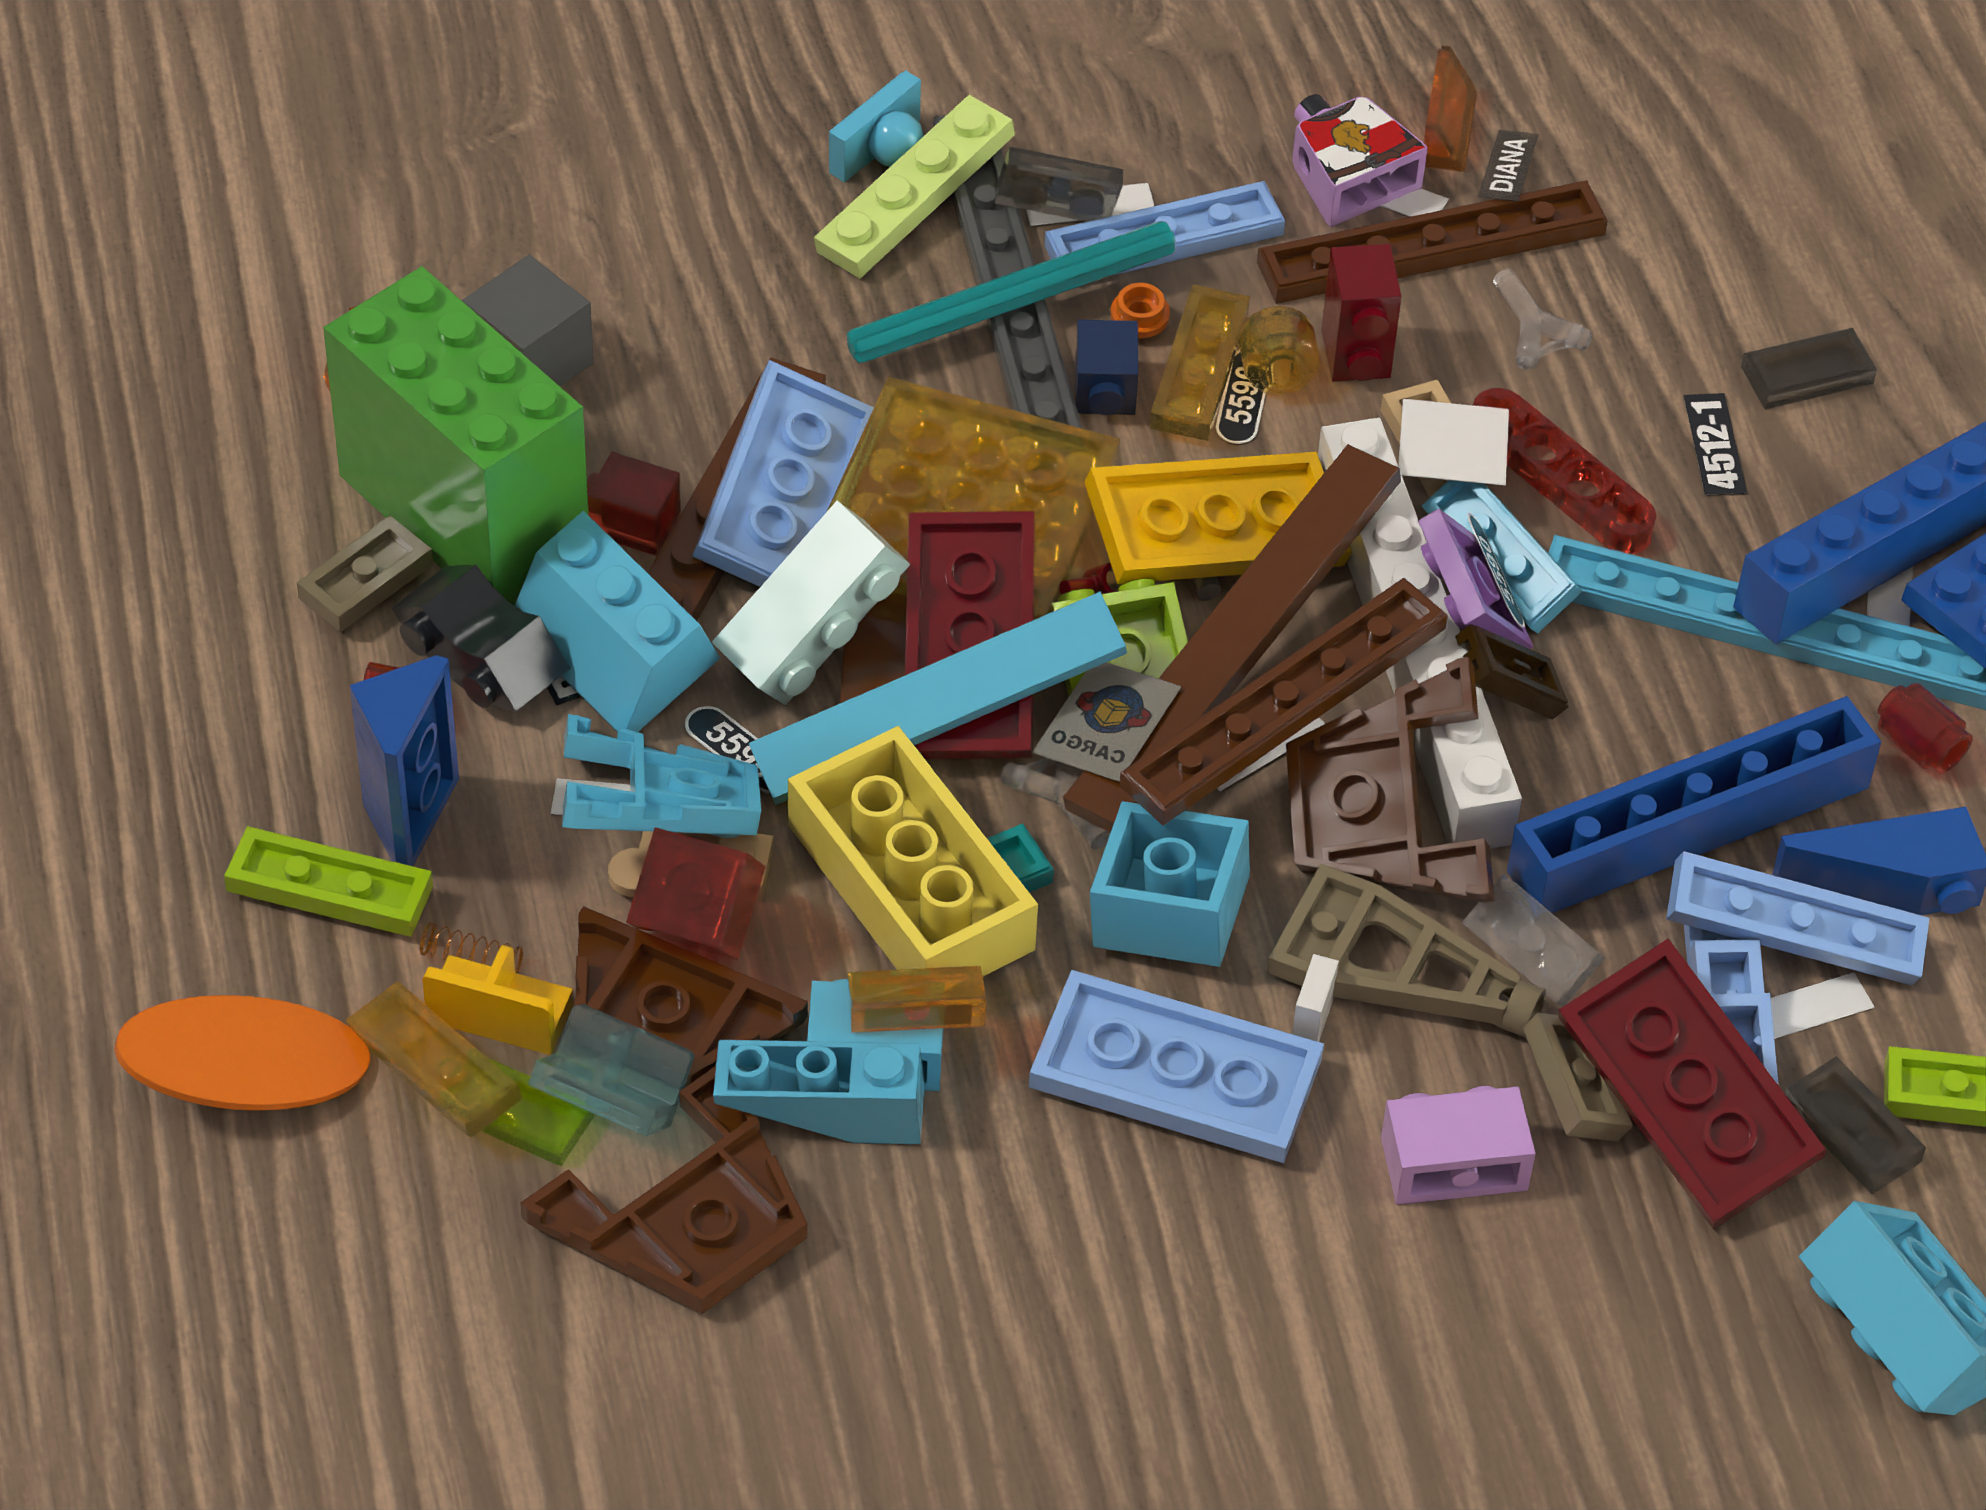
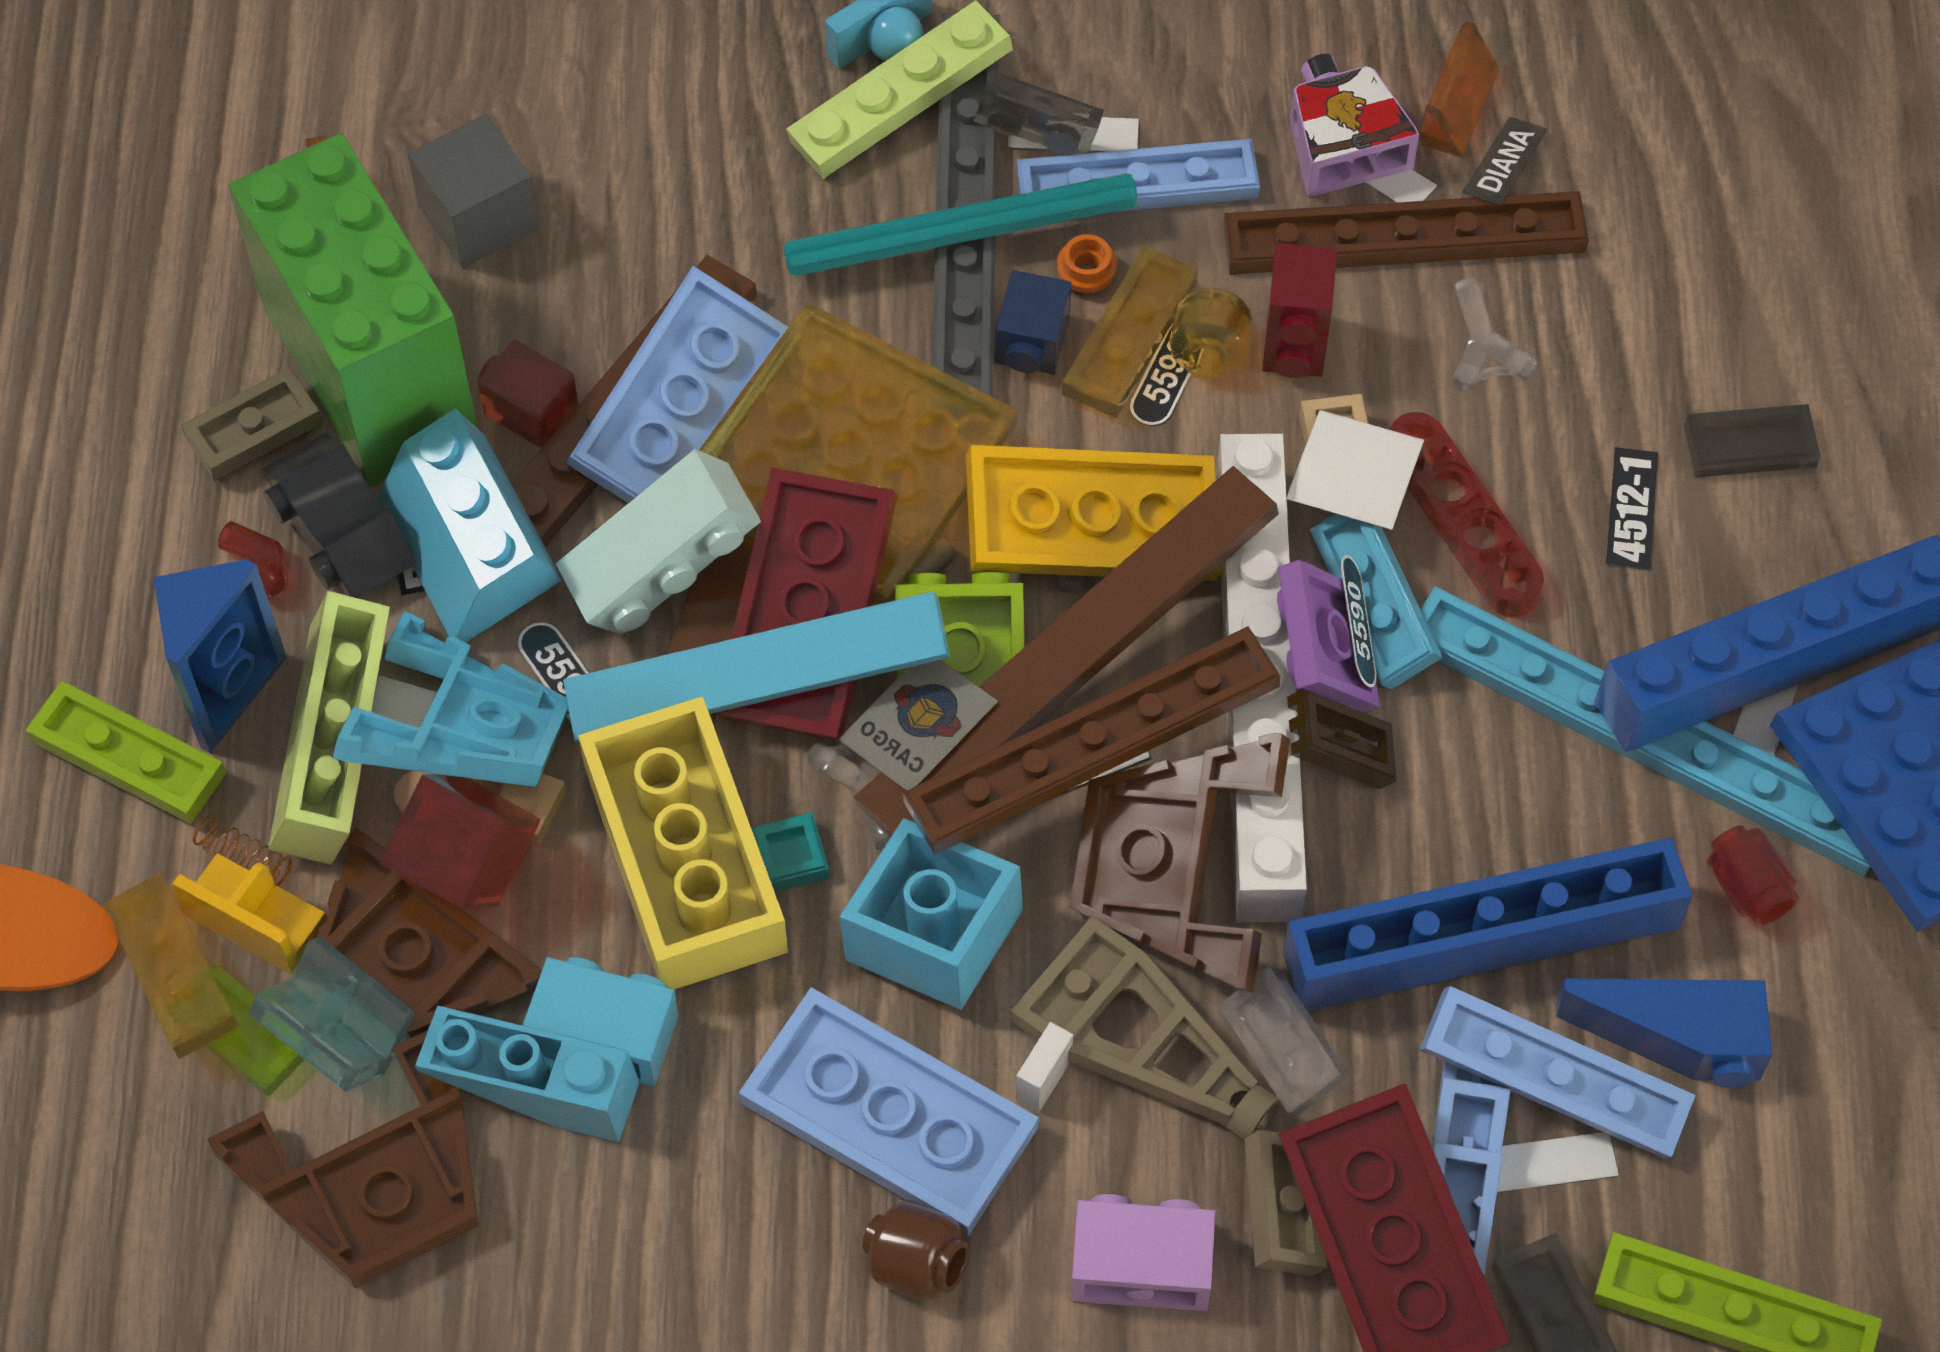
camera: 15 degrees right, 10 degrees up
(532, 856) = (336, 675): none -> yellowish green brick
(916, 999) = (638, 998): clear orange slope -> none
(1092, 579) = (952, 562): dark red hand -> none
(1241, 1179) = (916, 1251): none -> reddish brown head

